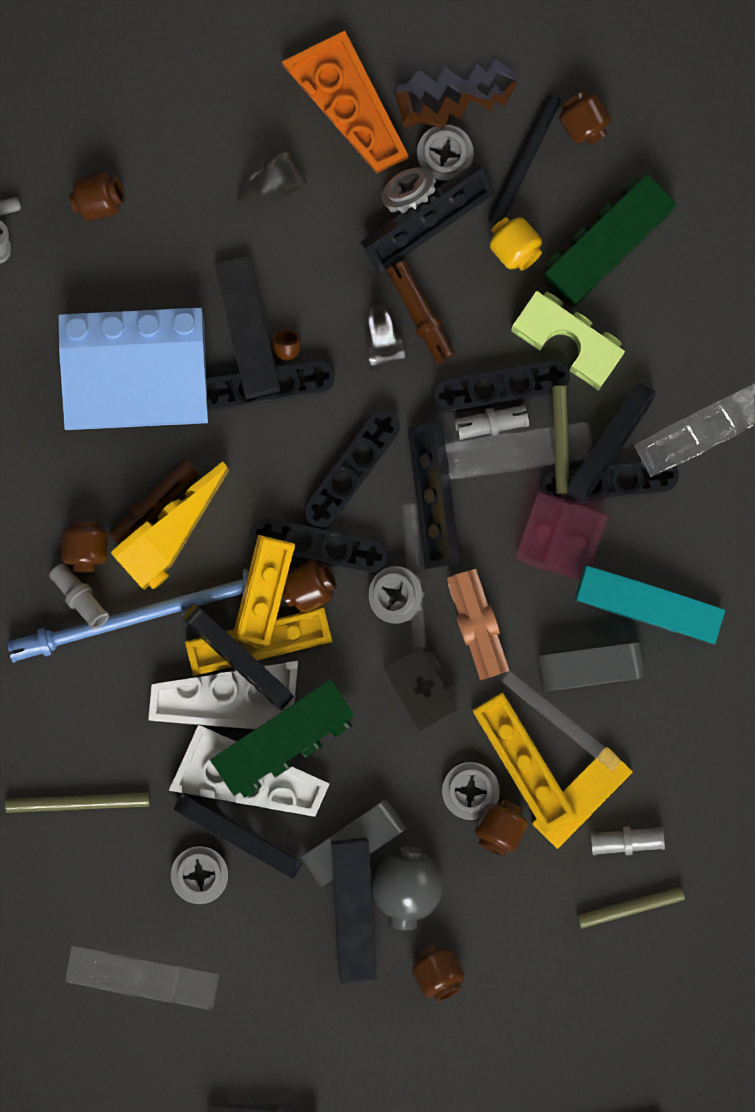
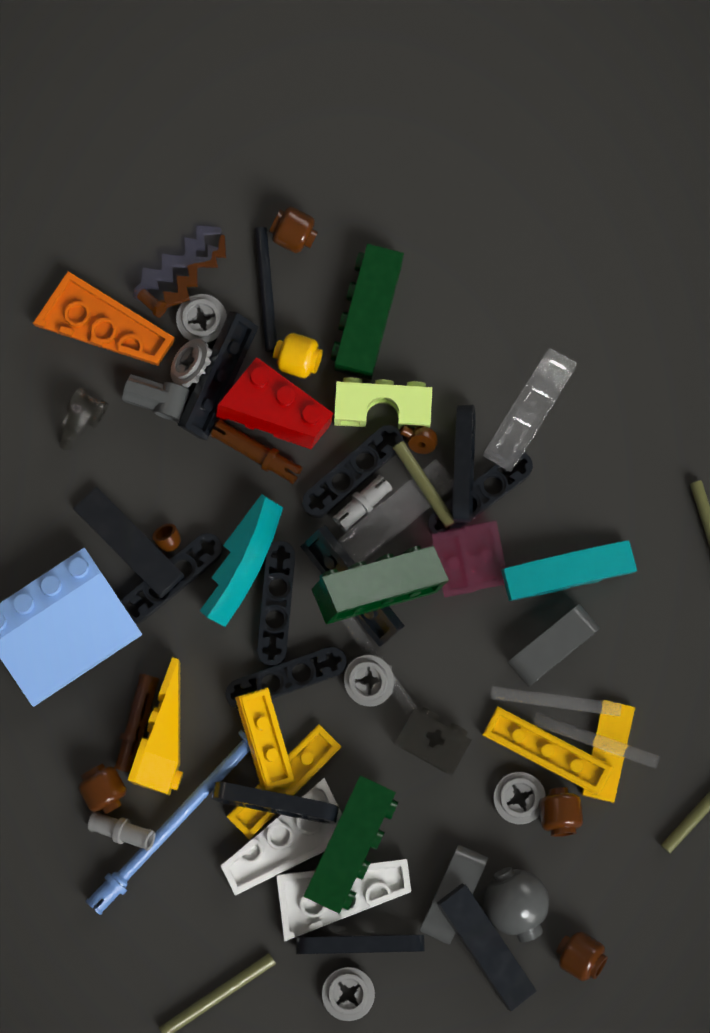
camera: 35 degrees left, 5 degrees down
(309, 586) = (298, 714): reddish brown head -> none
(355, 402) = (248, 551): none -> teal slope
(362, 210) = (165, 399): none -> dark grey piece
(384, 345) = (242, 491): clear smoke piece -> none
(459, 509) = (379, 584): none -> brick
(464, 279) = (275, 405): none -> red wedge
(477, 624) = (446, 665): nougat piece -> none
(576, 781) = (596, 740): none -> clear bar
(584, 393) = (420, 439): none -> reddish brown piece
(627, 840) = (668, 760): light grey pin -> none

